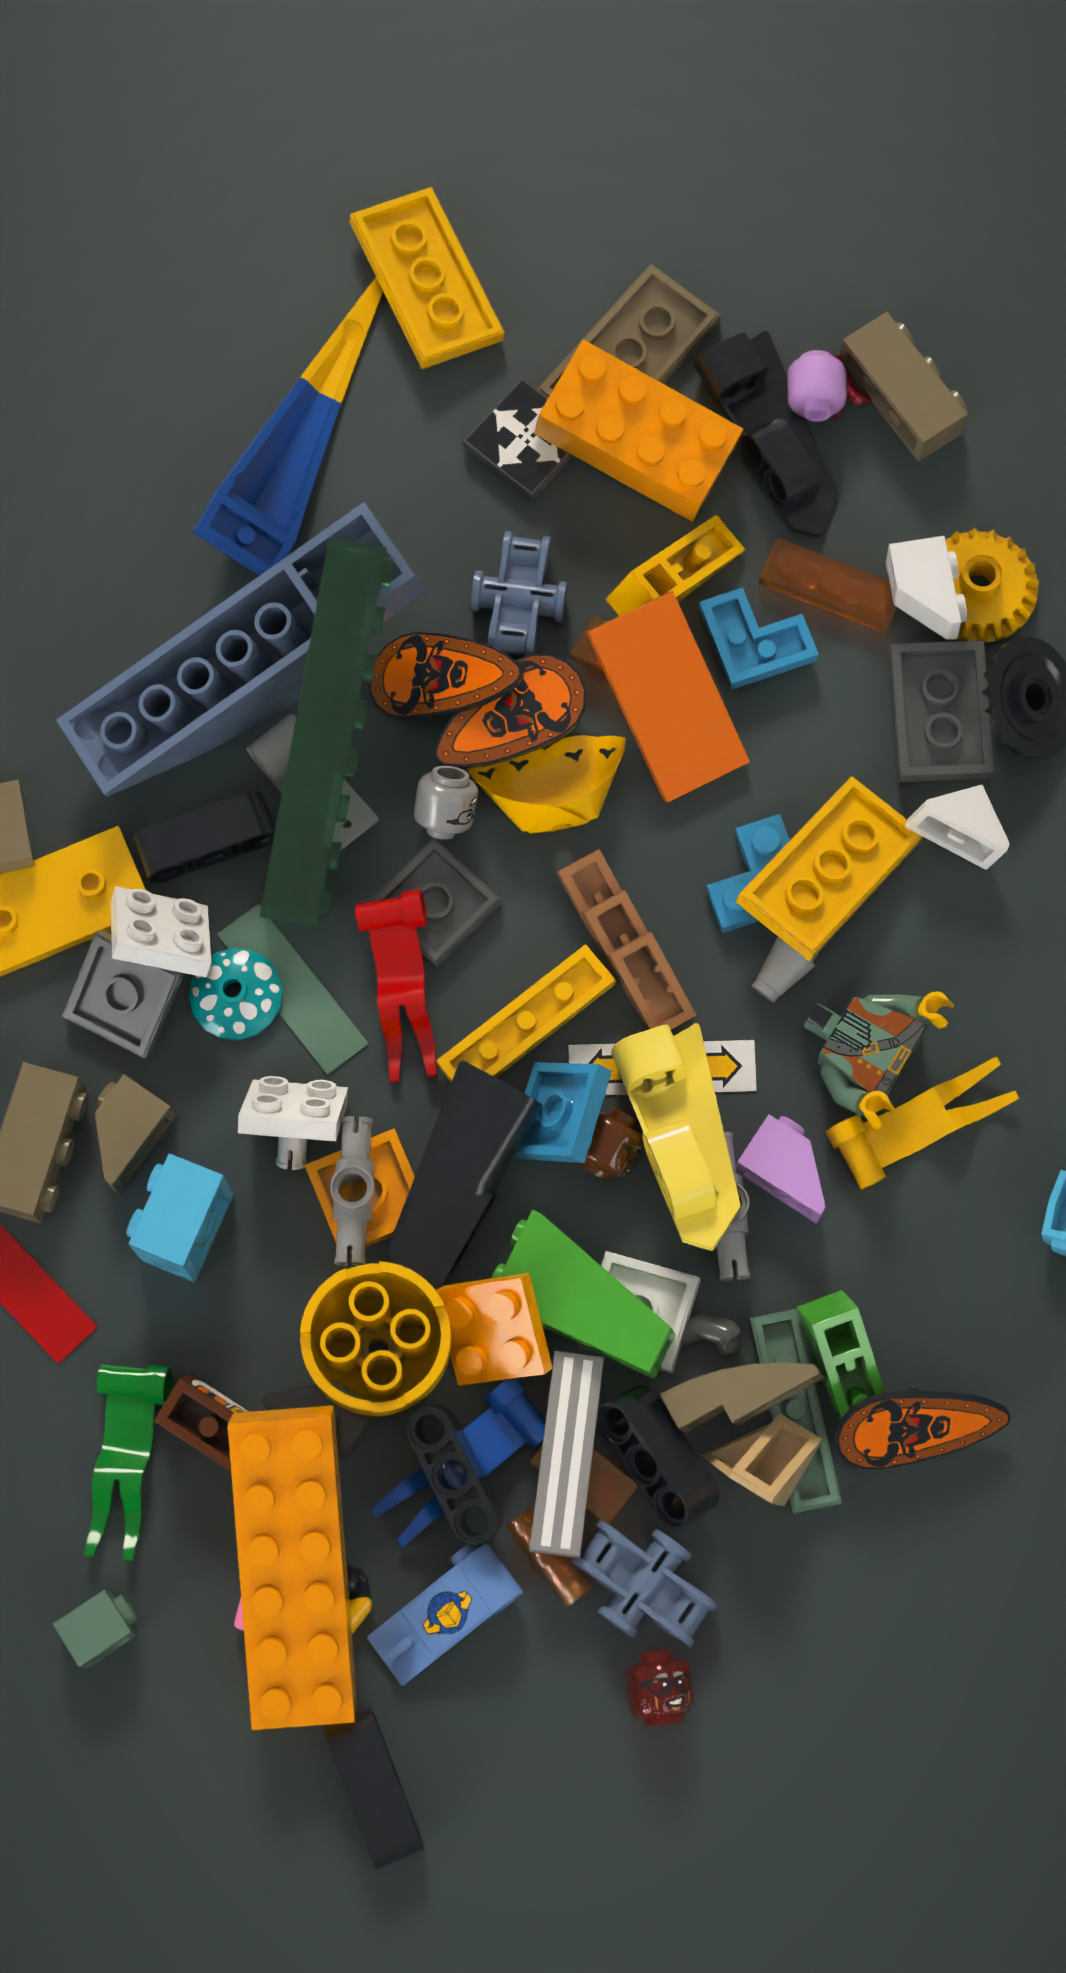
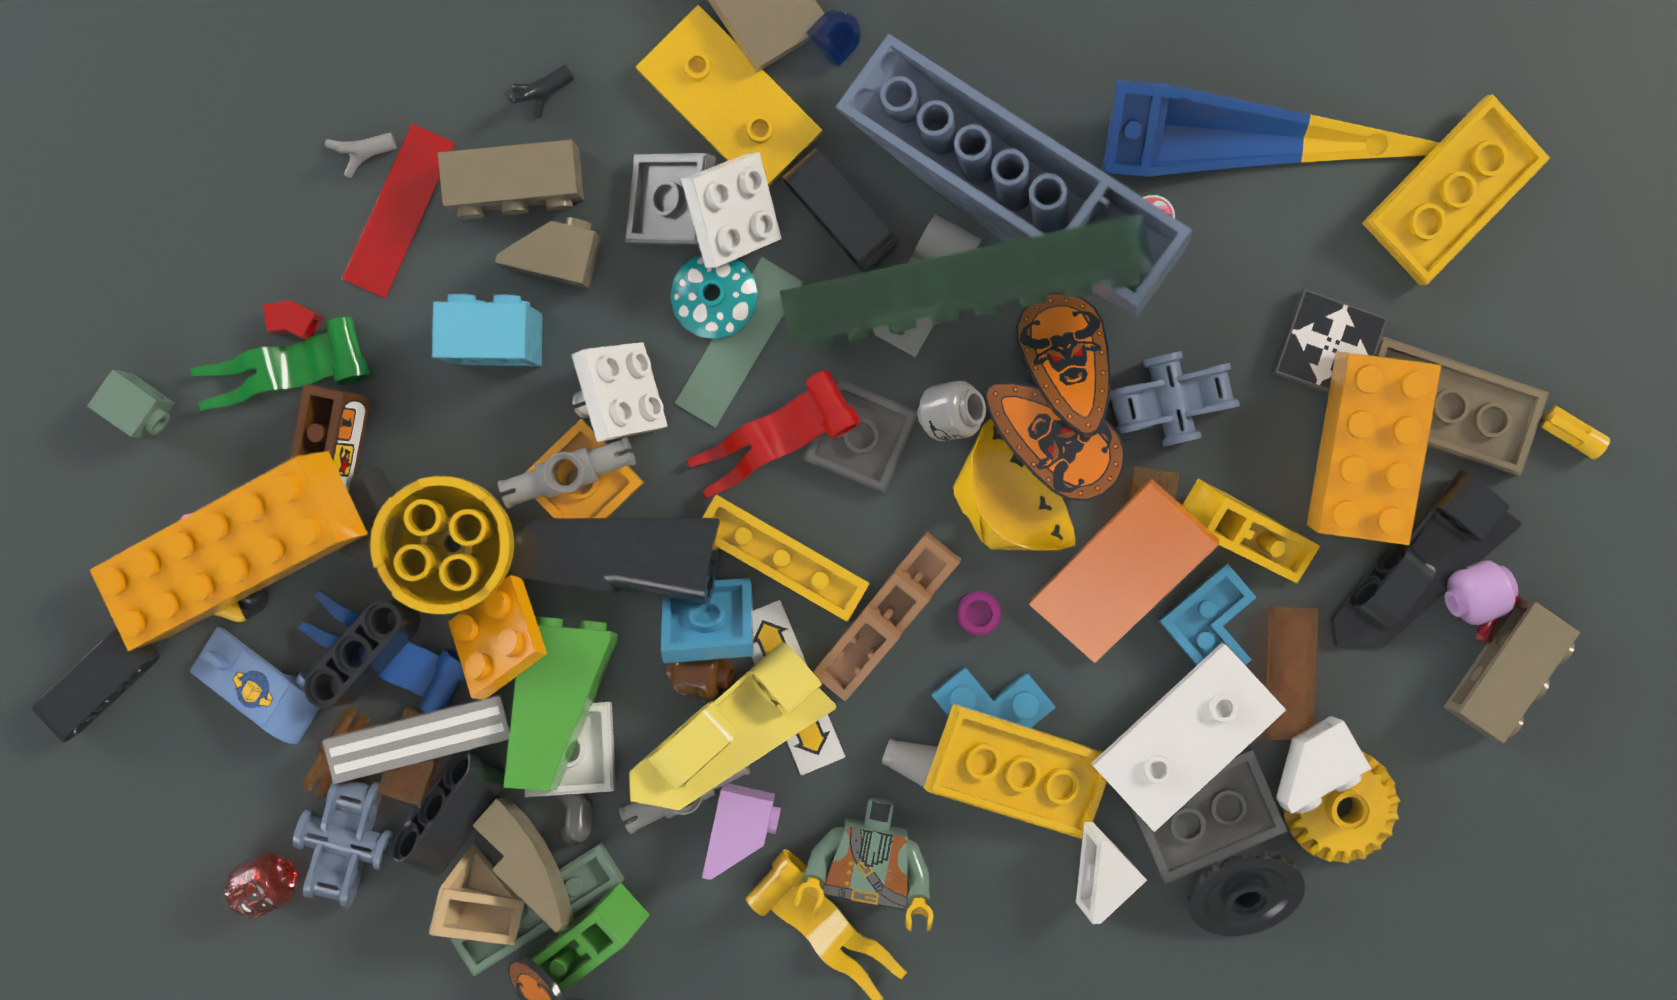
camera: 60 degrees right, 15 degrees up
(33, 778) = (836, 35): none -> clear blue tile
(77, 1426) = (291, 317): none -> red piece
(657, 855) = (978, 613): none -> magenta tile
(698, 254) = (1575, 432): none -> yellow piece
(854, 697) = (1188, 736): none -> white plate

